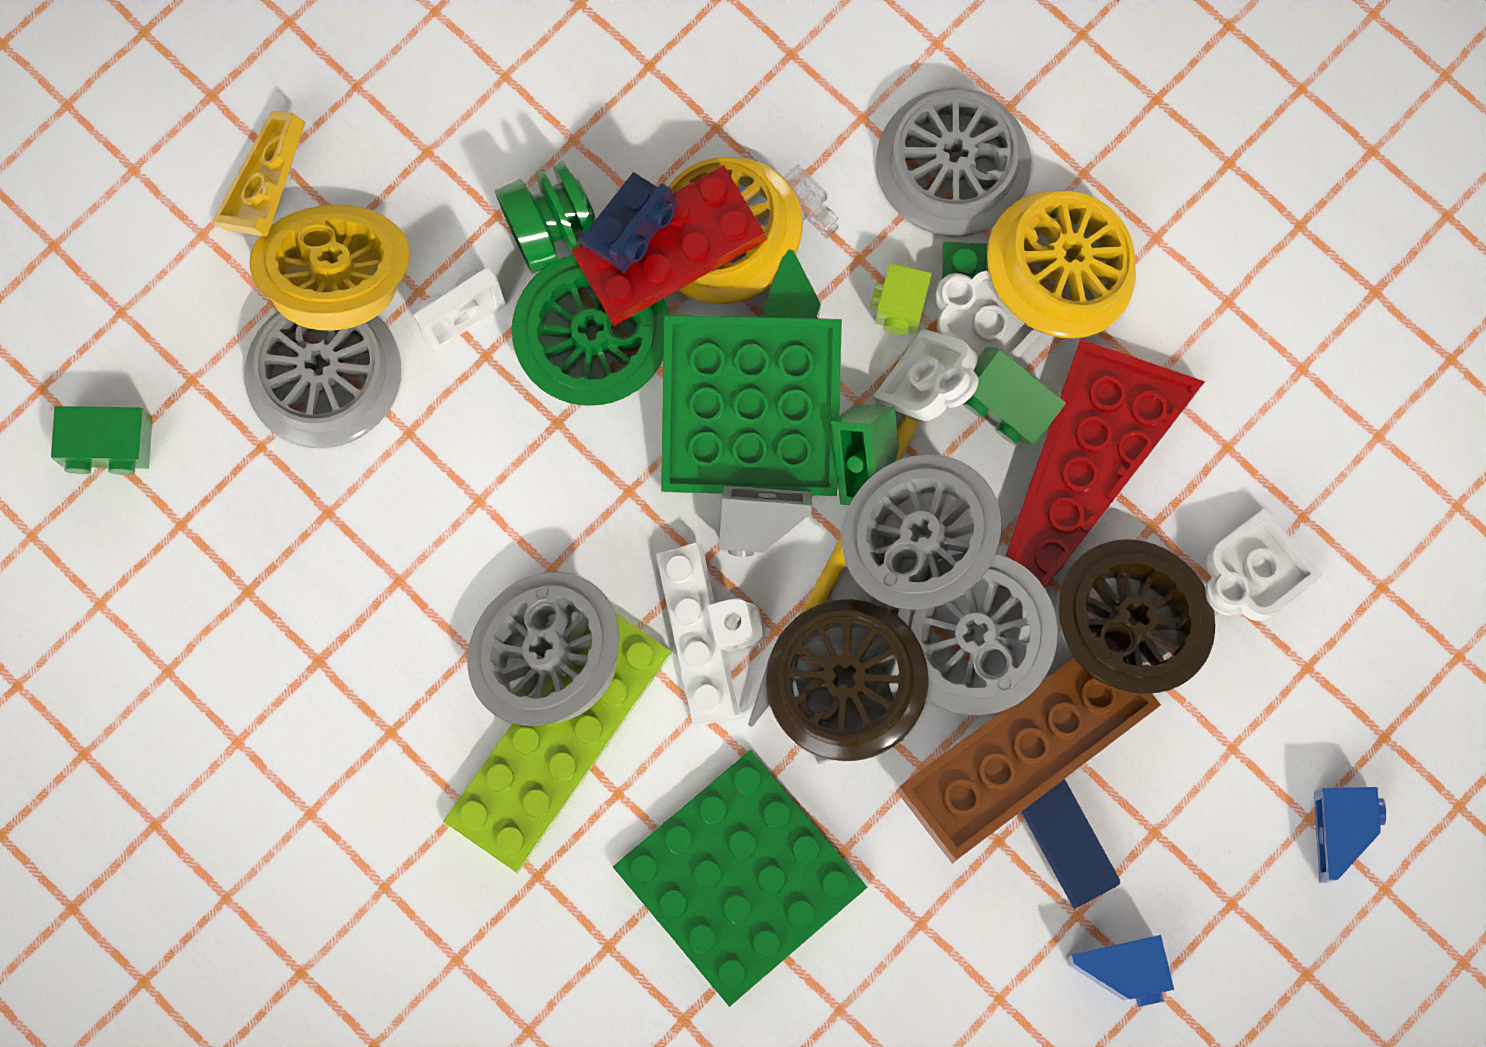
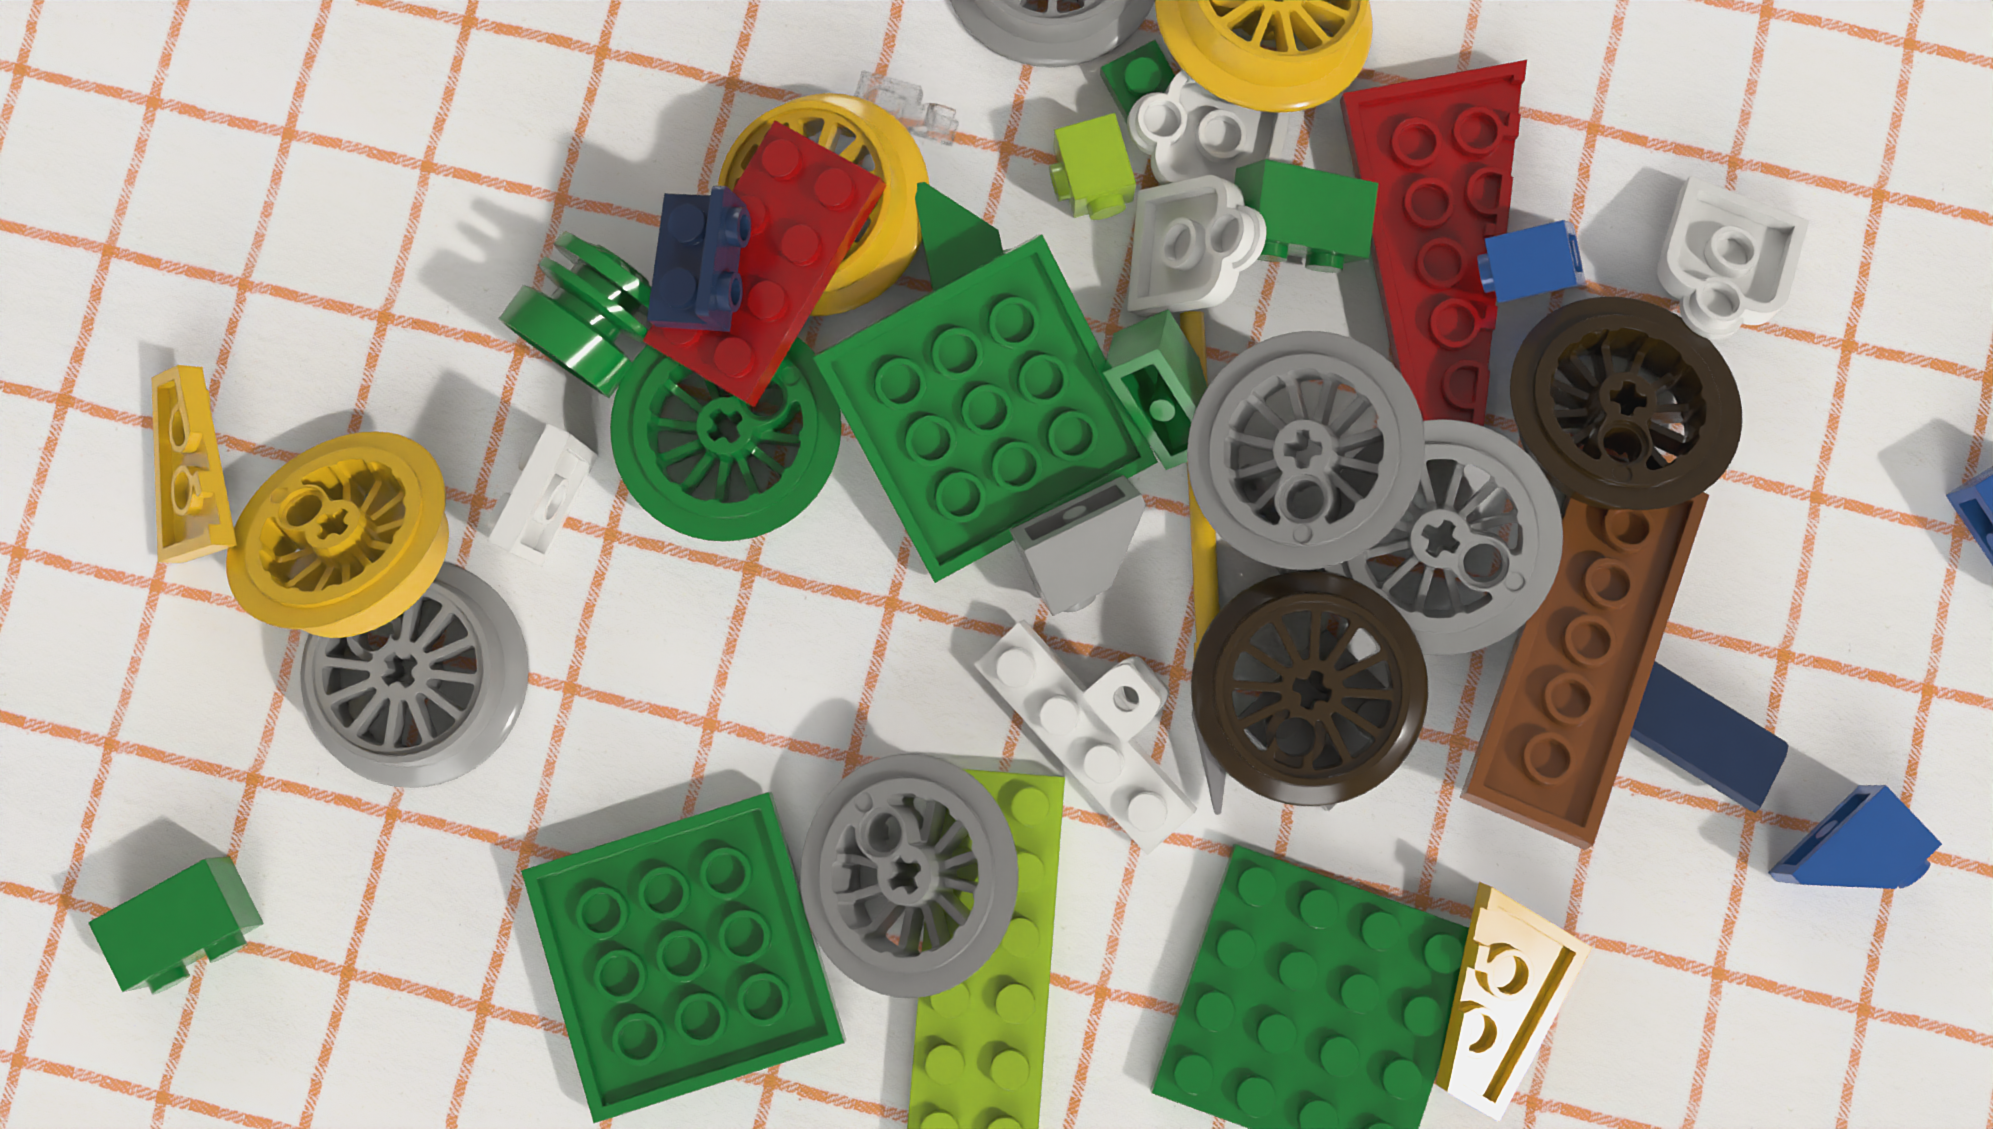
camera: 25 degrees left, 5 degrees up
(383, 626) = (683, 957): none -> green plate
(857, 933) = (1504, 999): none -> wing
(1134, 503) = (1532, 262): none -> blue slope

